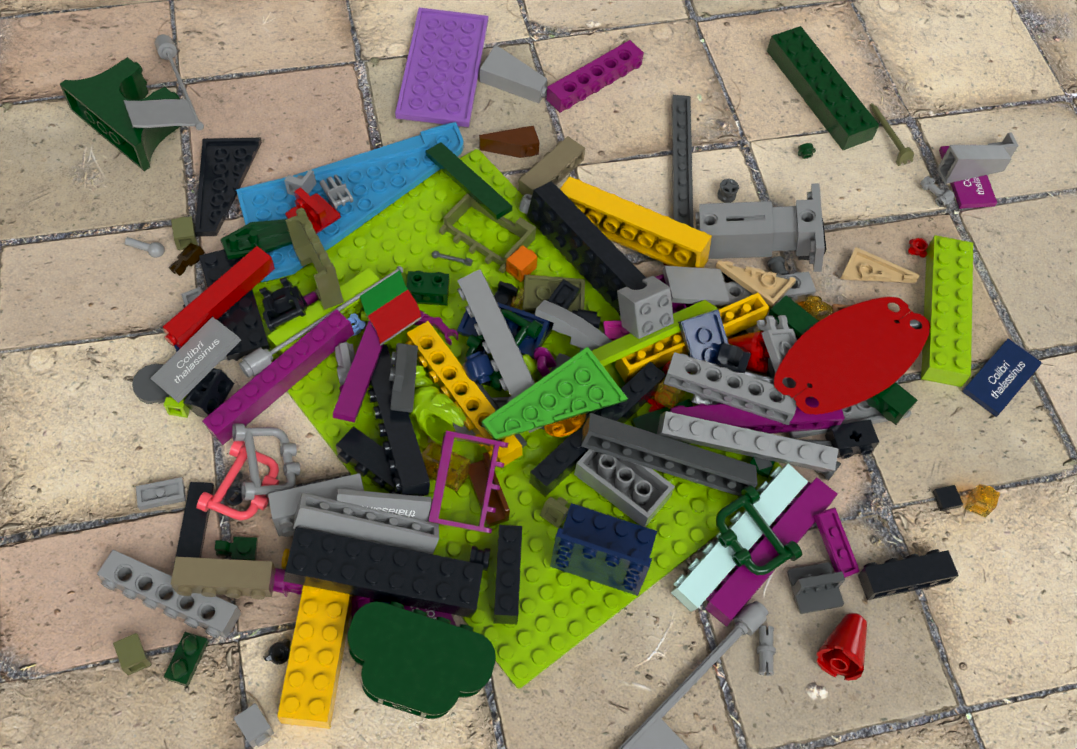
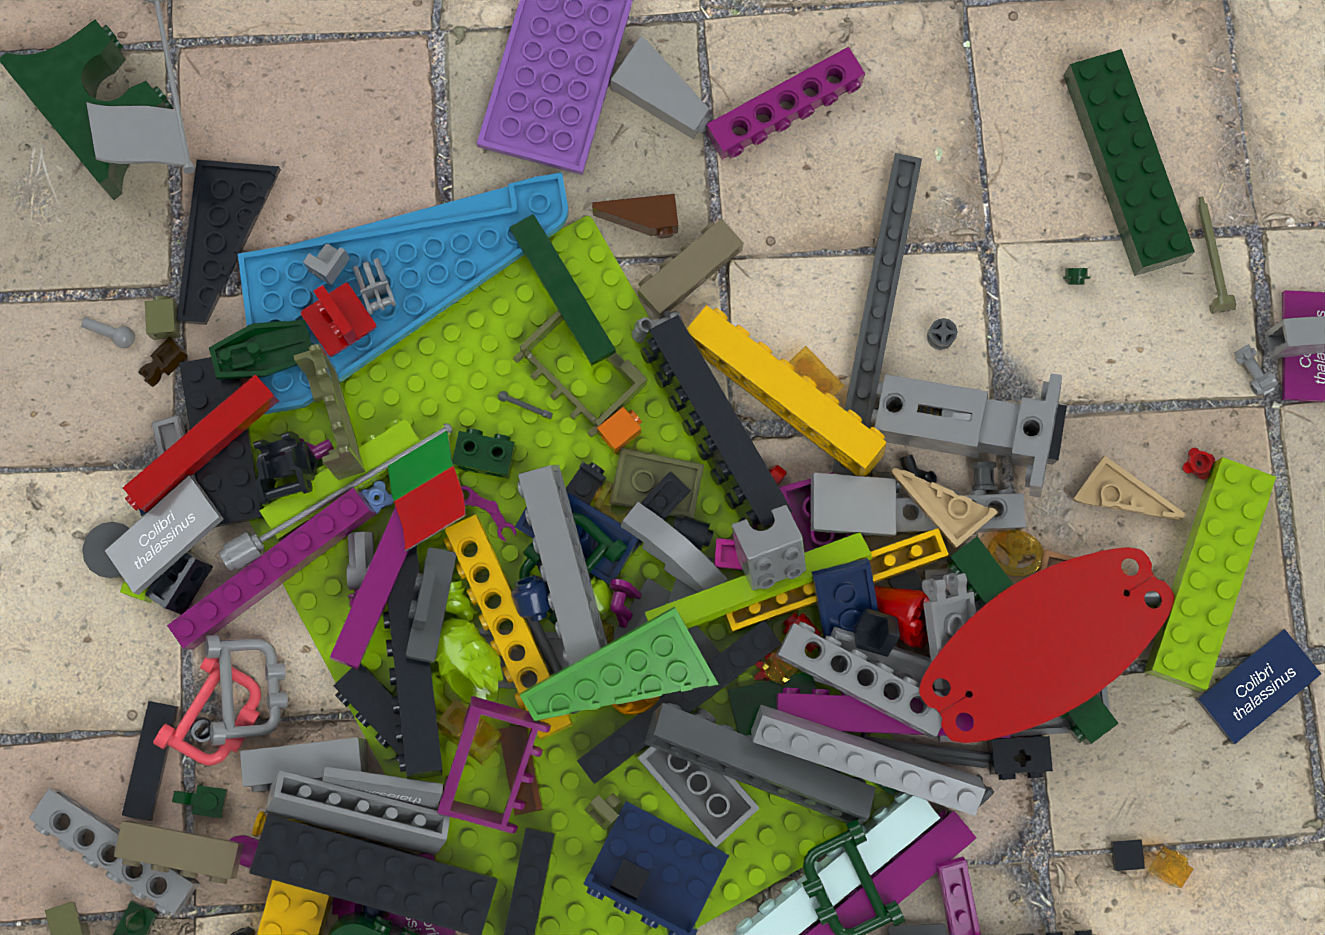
camera: 10 degrees right, 20 degrees up
(160, 493) = (111, 712): light grey plate -> none
(480, 556) = (497, 862): black wheel -> none

